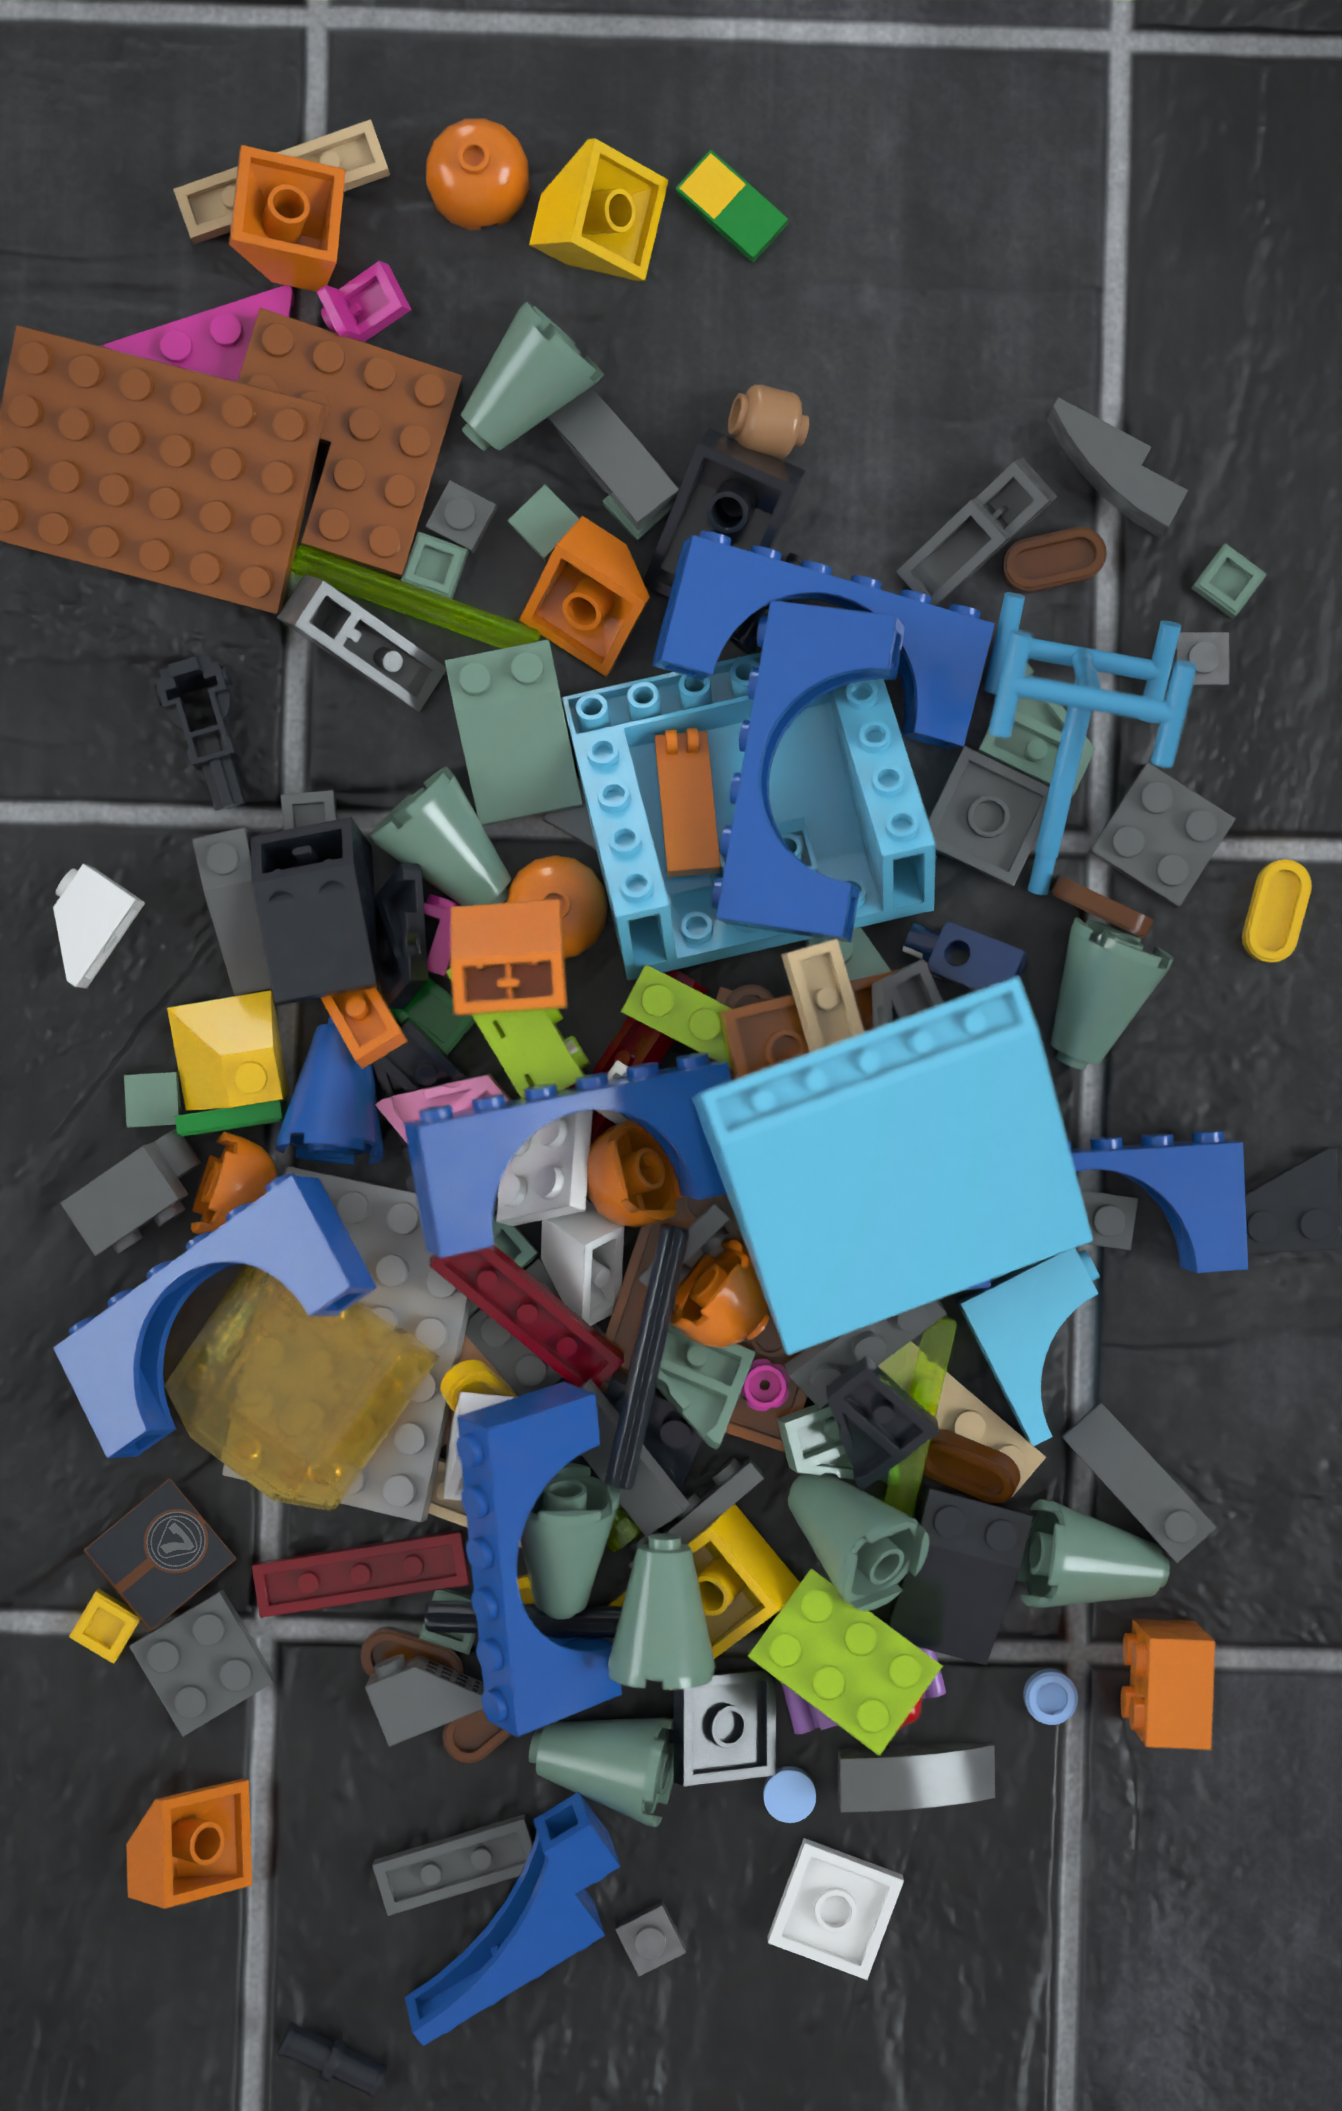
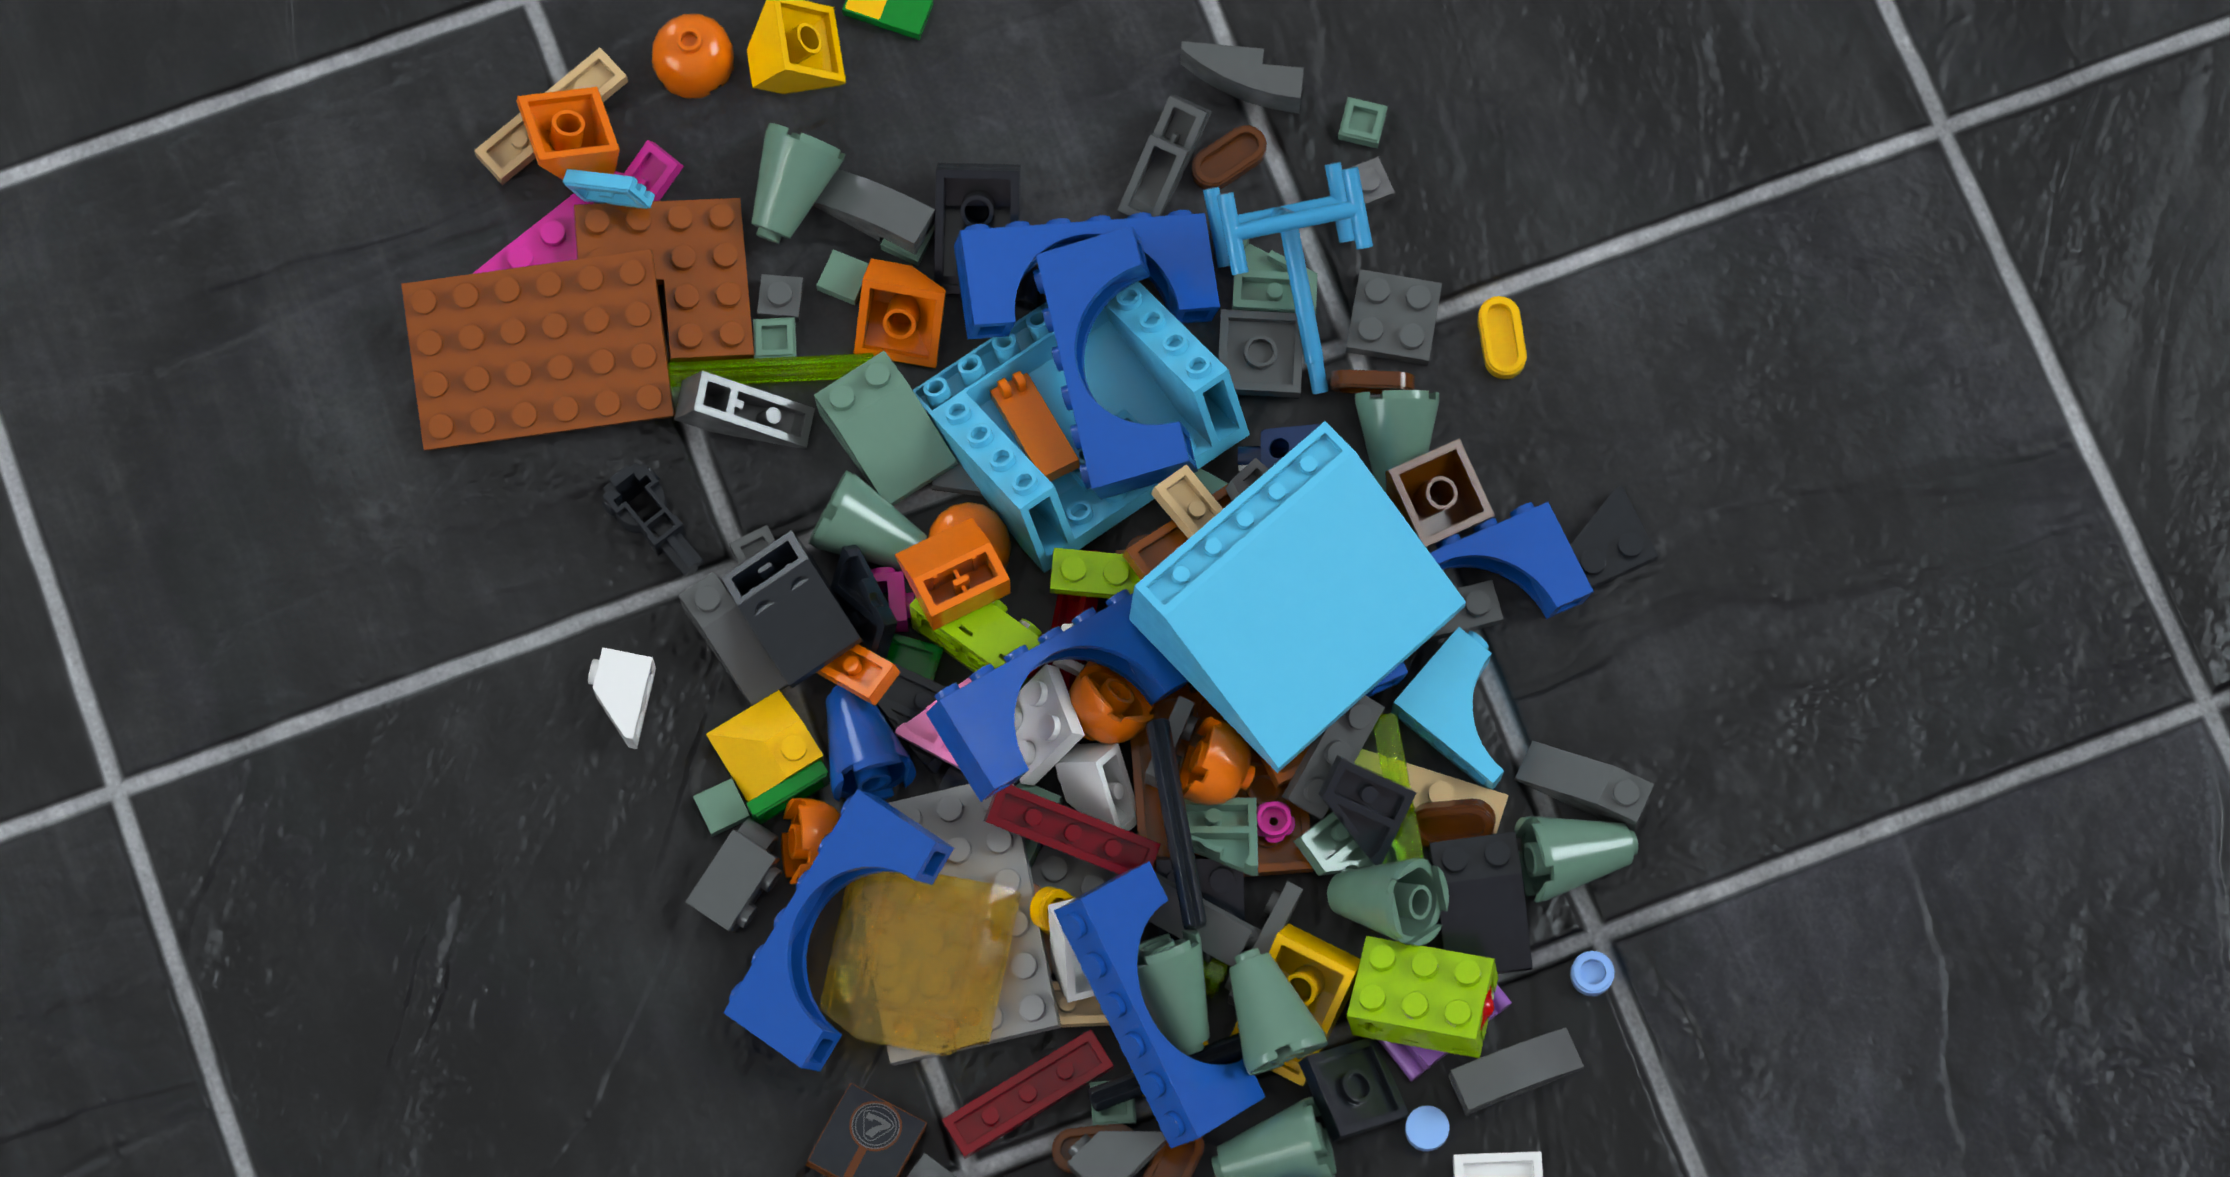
camera: 25 degrees left, 15 degrees down
(304, 306) = (608, 188): none -> medium azure tile
(768, 421) = (978, 140): medium nougat head -> none
(1116, 1086) = (1438, 493): none -> reddish brown slope
(1169, 1683) = (1671, 914): orange brick -> none

